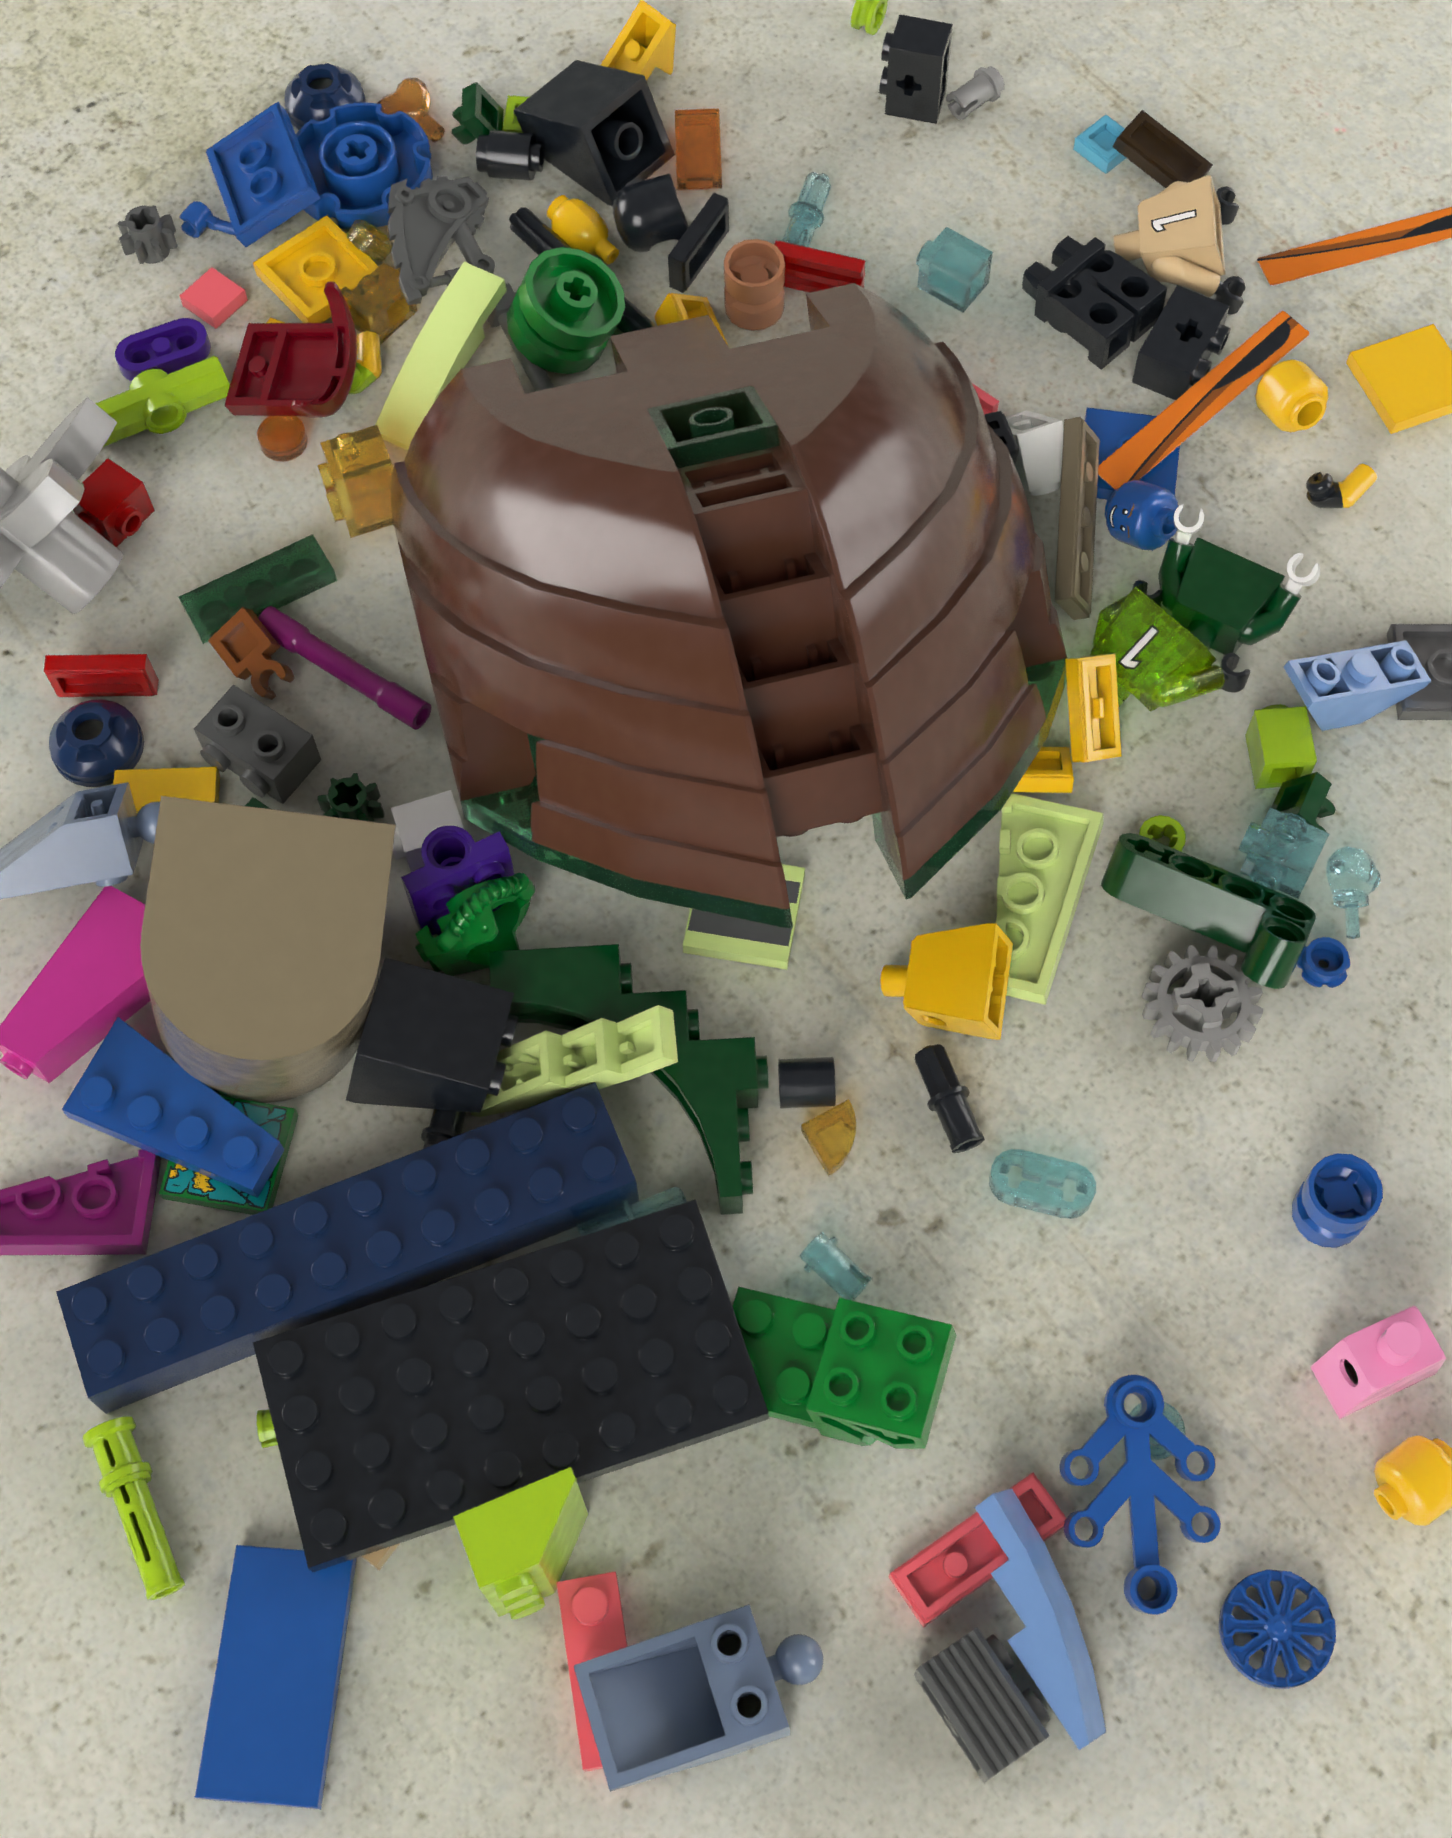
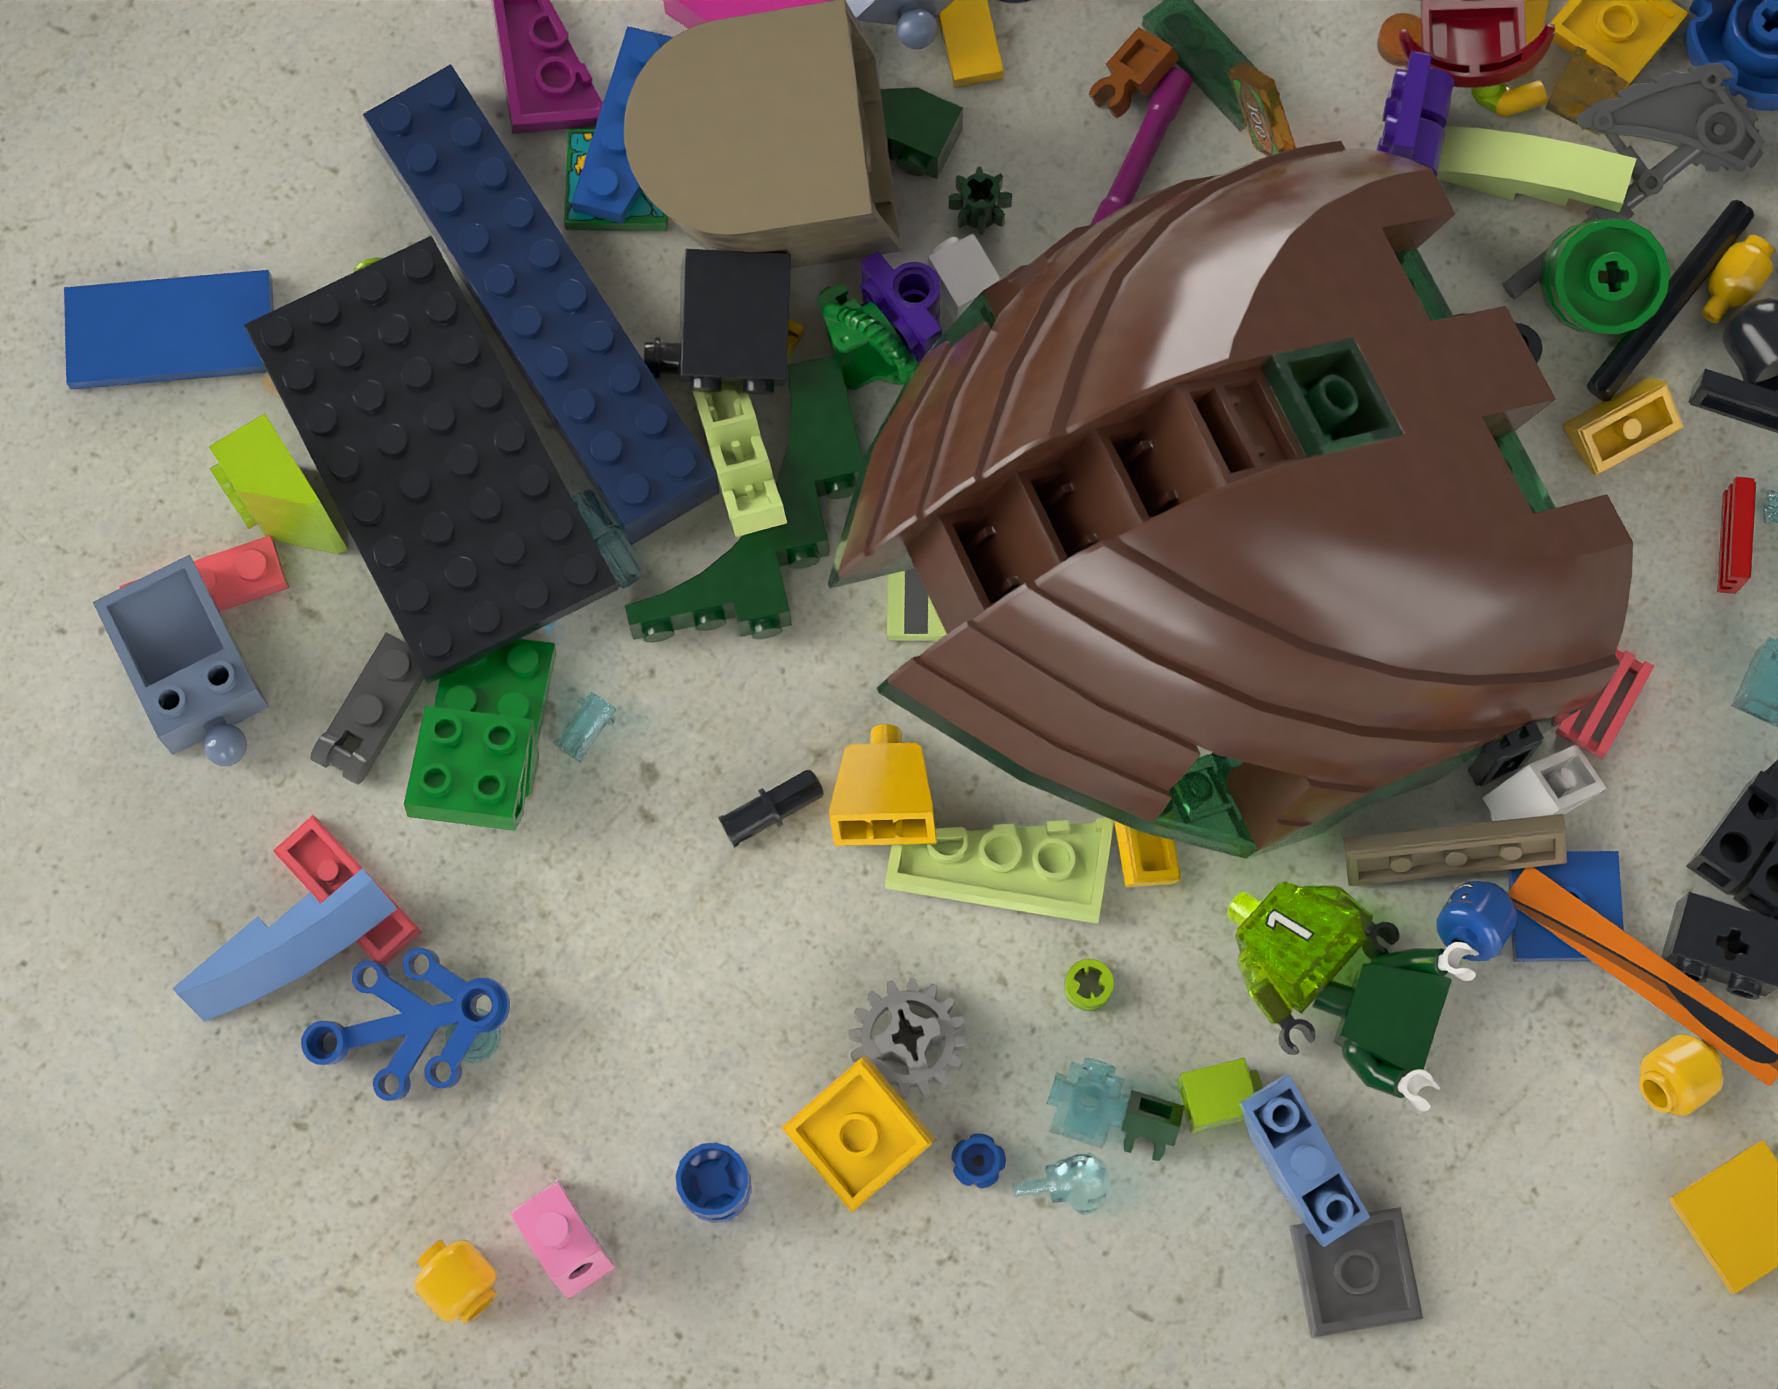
camera: 80 degrees right, 10 degrees up
(126, 1482) = (310, 169): lime pin -> none
(257, 745) = (1030, 101): dark grey brick -> none
(336, 540) = (1261, 110): none -> clear orange tile
(354, 409) = (1417, 112): none -> dark purple plate
(358, 480) = (1344, 110): clear yellow brick -> none
(369, 240) = (1666, 56): clear yellow tile -> none
(754, 284) = (1696, 468): nougat wheel -> none
(776, 1494) = (370, 710): none -> dark grey plate
(807, 1082) = (763, 672): black beam -> none
(832, 1135) = (717, 706): clear yellow tile -> none
(982, 1703) = (208, 906): dark grey brick -> none
(1045, 1171) = (686, 905): clear light blue beam -> none
(1090, 710) = (1254, 874): yellow tile -> none
(1214, 904) = (1016, 1040): dark green beam -> none
(1277, 1629) = (308, 1162): blue wheel -> none
(1294, 1060) = (858, 1133): none -> yellow tile
(1329, 494) = (1565, 1141): arm -> none

